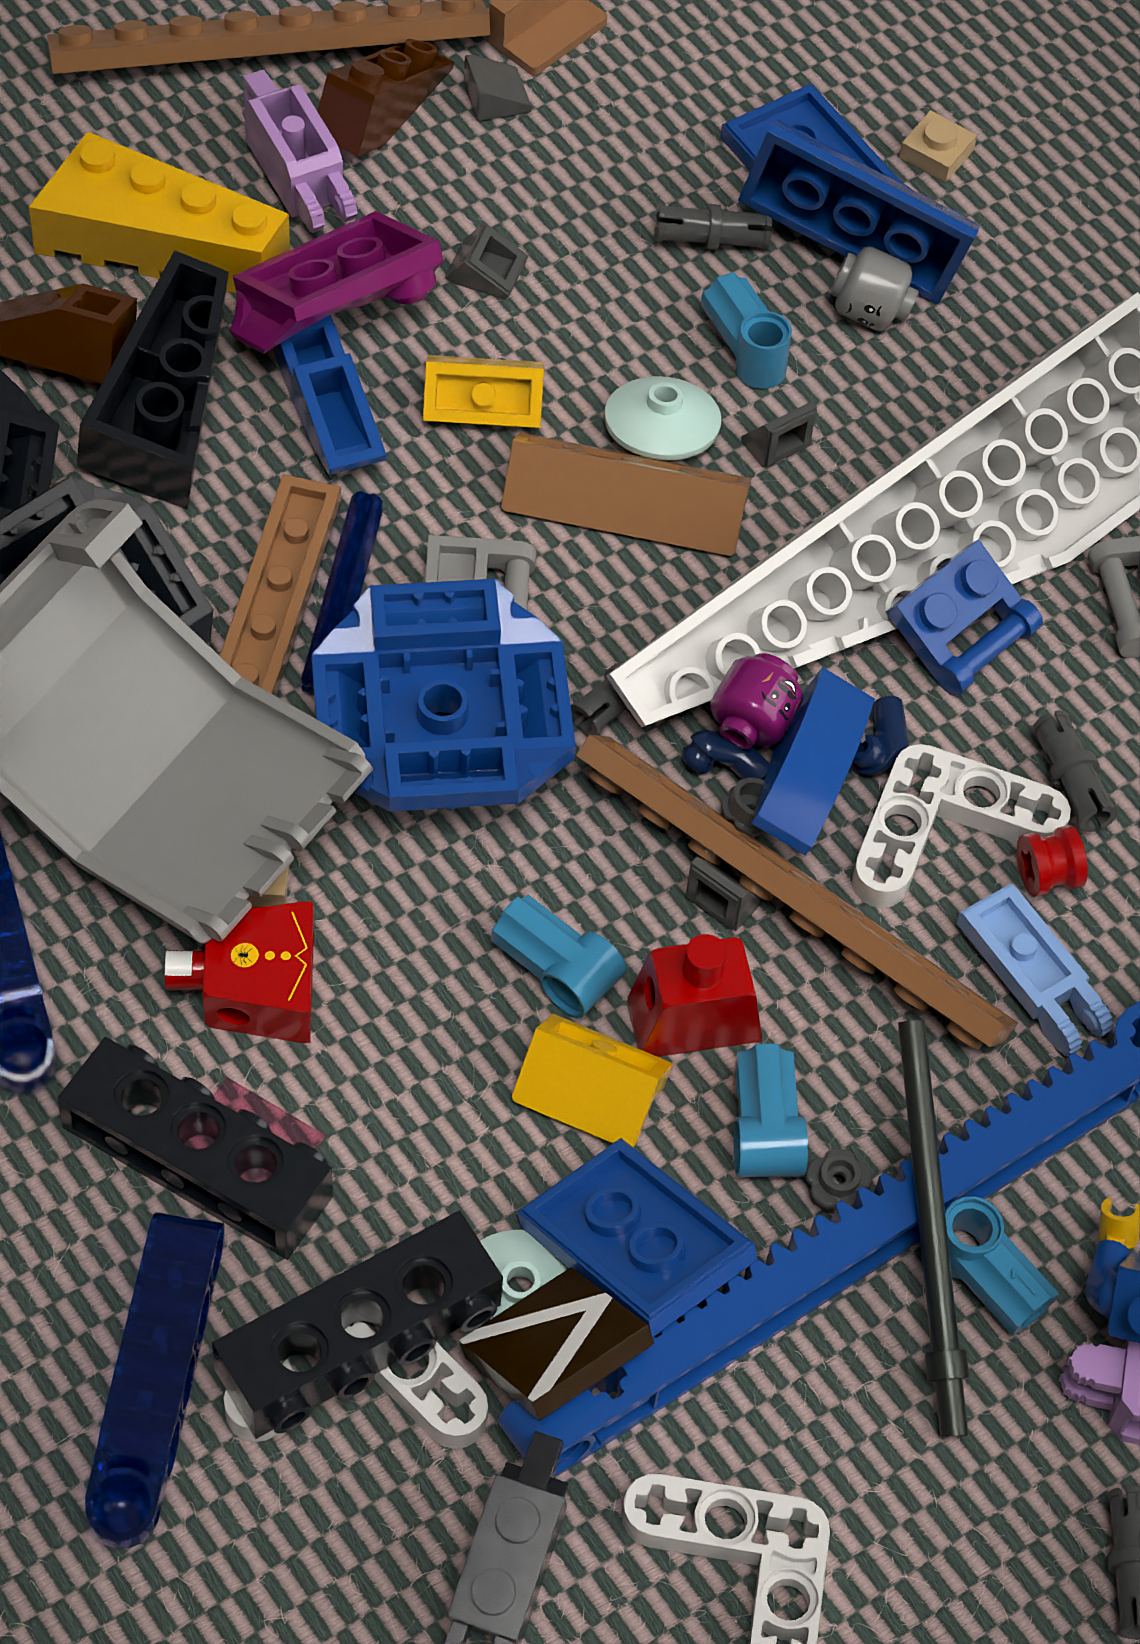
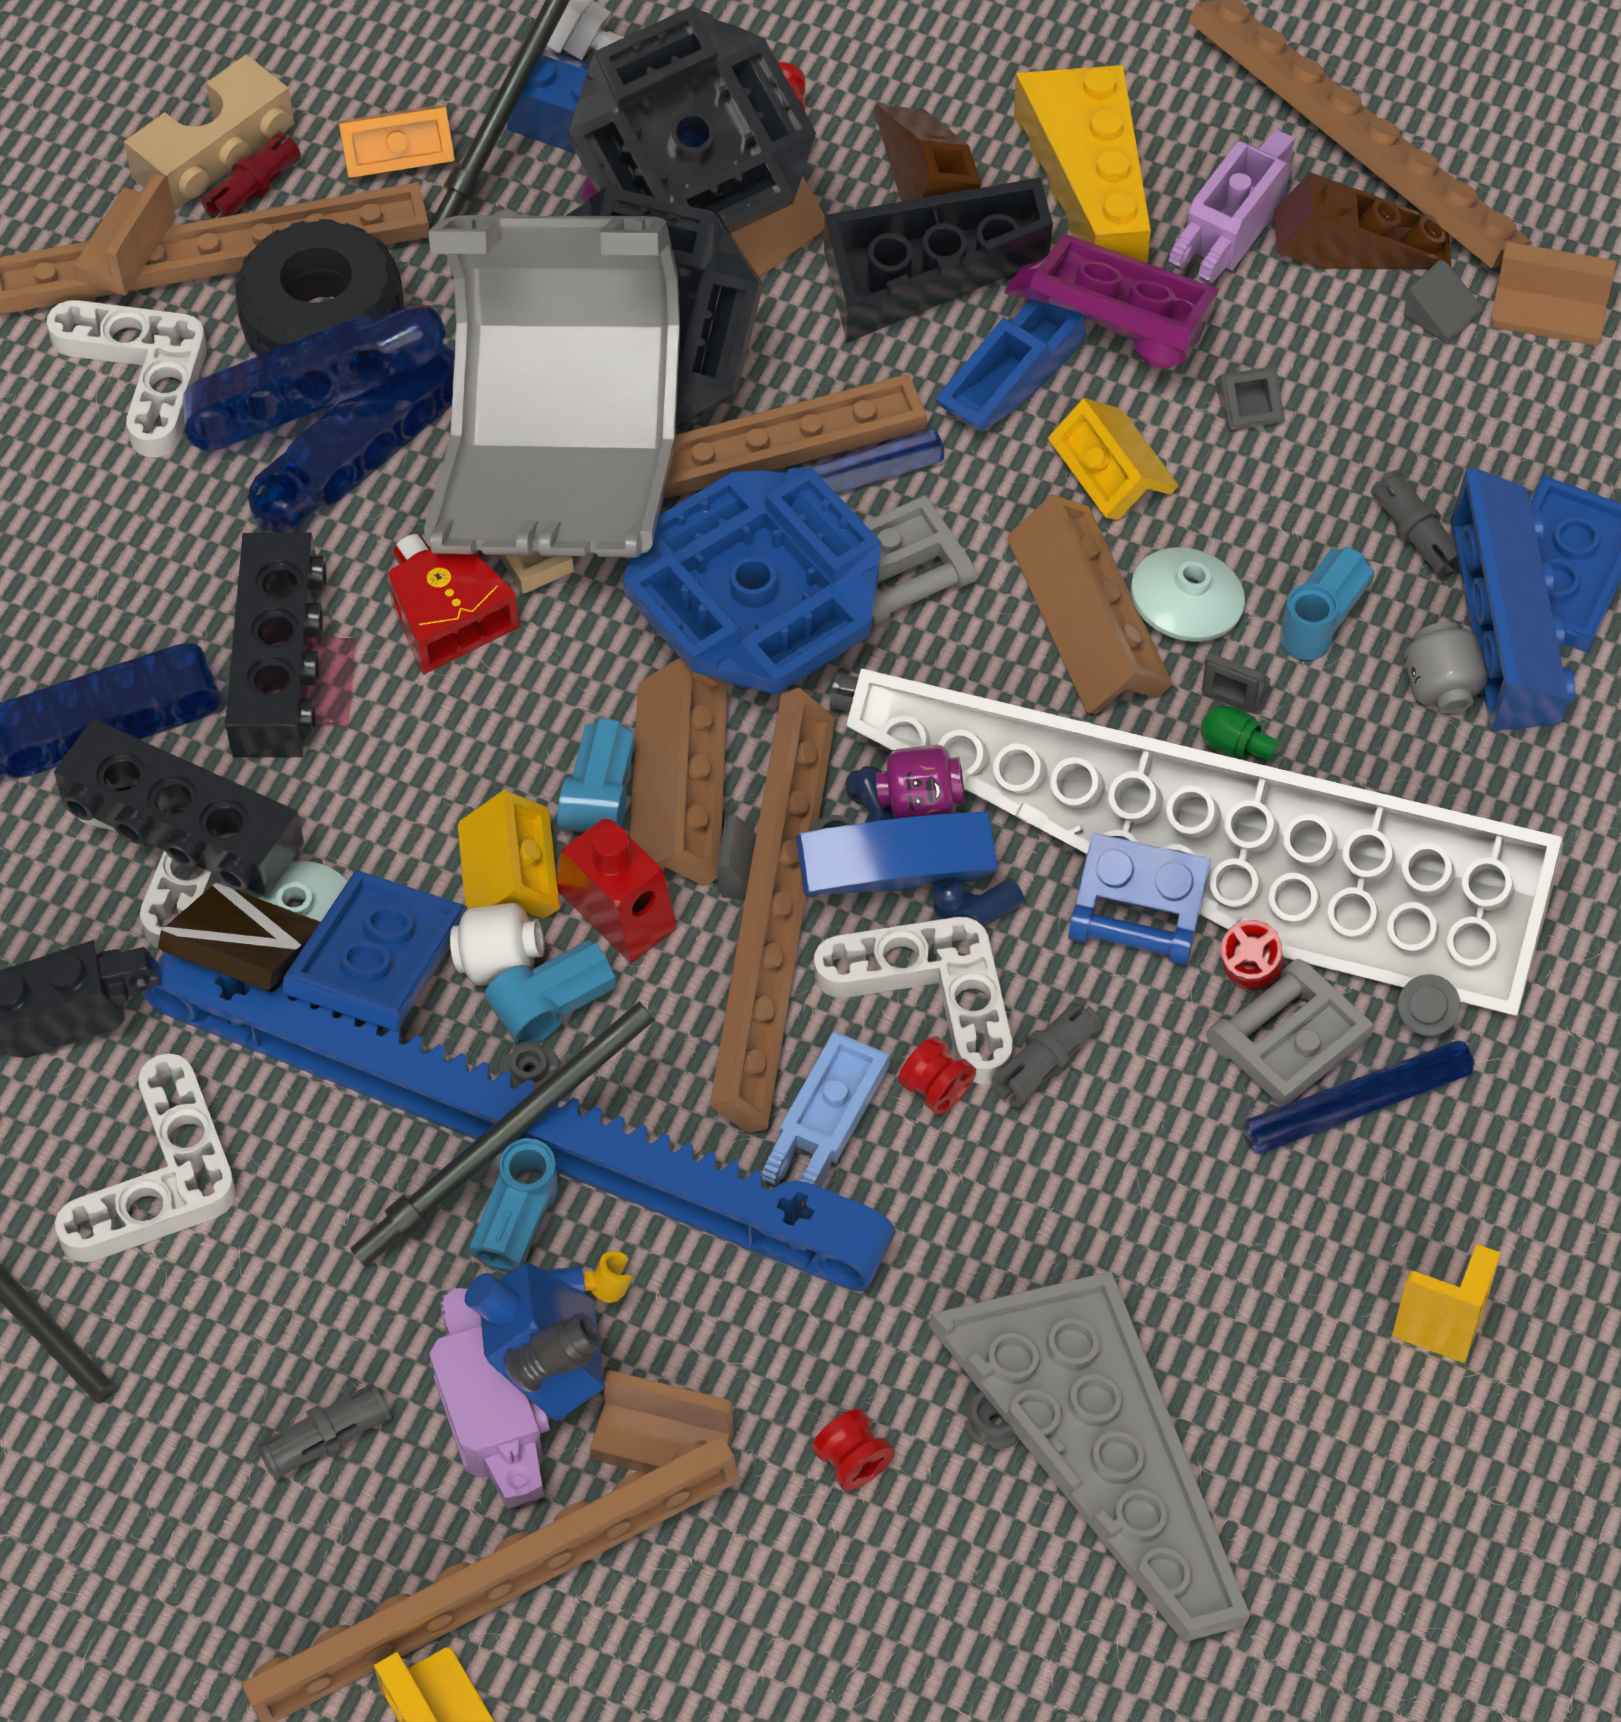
camera: 65 degrees right, 0 degrees up
(587, 887) = (680, 770): none -> medium nougat panel
(690, 1131) = (494, 941): none -> white head
(836, 463) = (1238, 734): none -> green cylinder
(1084, 561) = (1246, 944): none -> wheel

